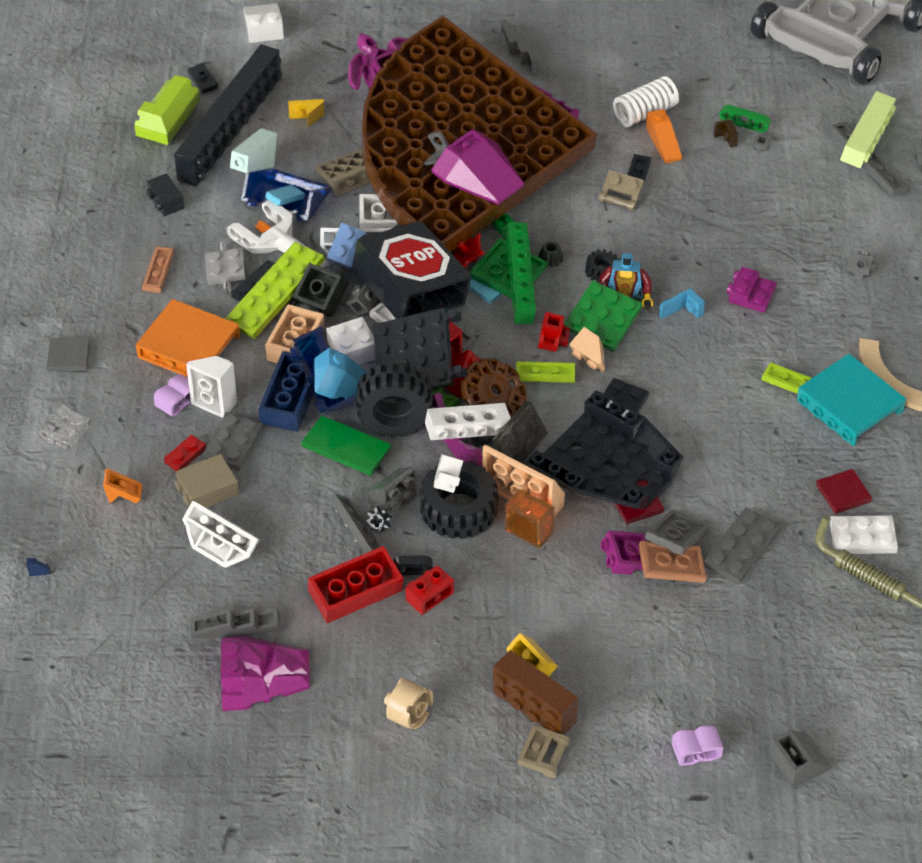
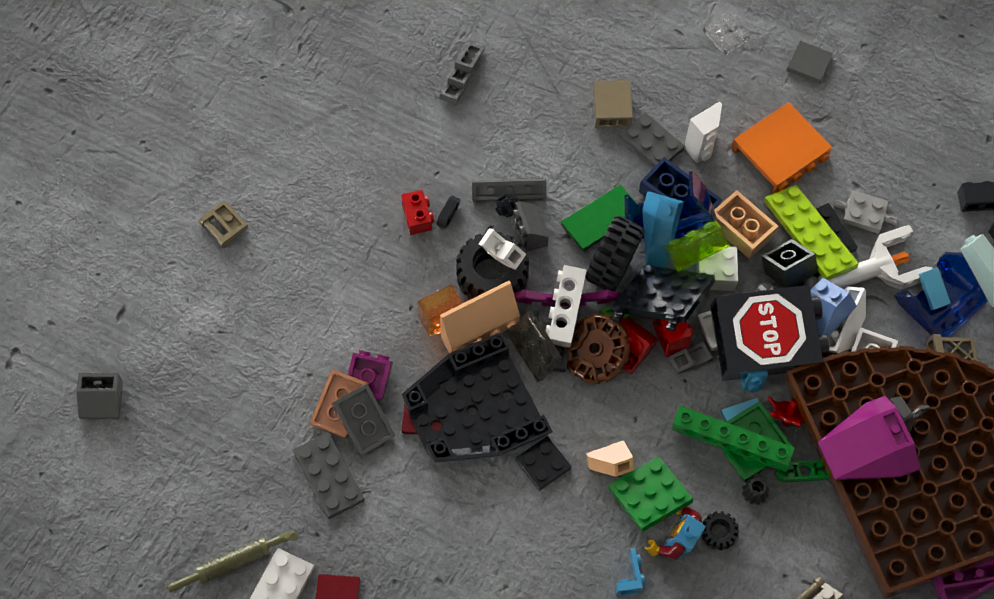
camera: 115 degrees right, 15 degrees up
(120, 485) = (636, 42): orange slope -> none
(158, 269) = (886, 161): nougat tile -> none
(174, 396) = (729, 121): lavender brick -> none
(185, 453) = (656, 104): red plate -> none
(217, 536) = (551, 91): white wedge -> none
(260, 670) = (412, 72): magenta wedge -> none
(351, 343) = (696, 245): none -> clear neon green brick
(355, 584) = (448, 160): red brick -> none
(408, 704) = (313, 146): tan brick -> none
(532, 653) = (305, 249): yellow brick -> none
(534, 693) = (268, 232): reddish brown brick -> none
(546, 371) = (607, 411): lime plate -> none
(553, 332) = (649, 438): red brick -> none
(697, 745) = (159, 329): lavender brick -> none

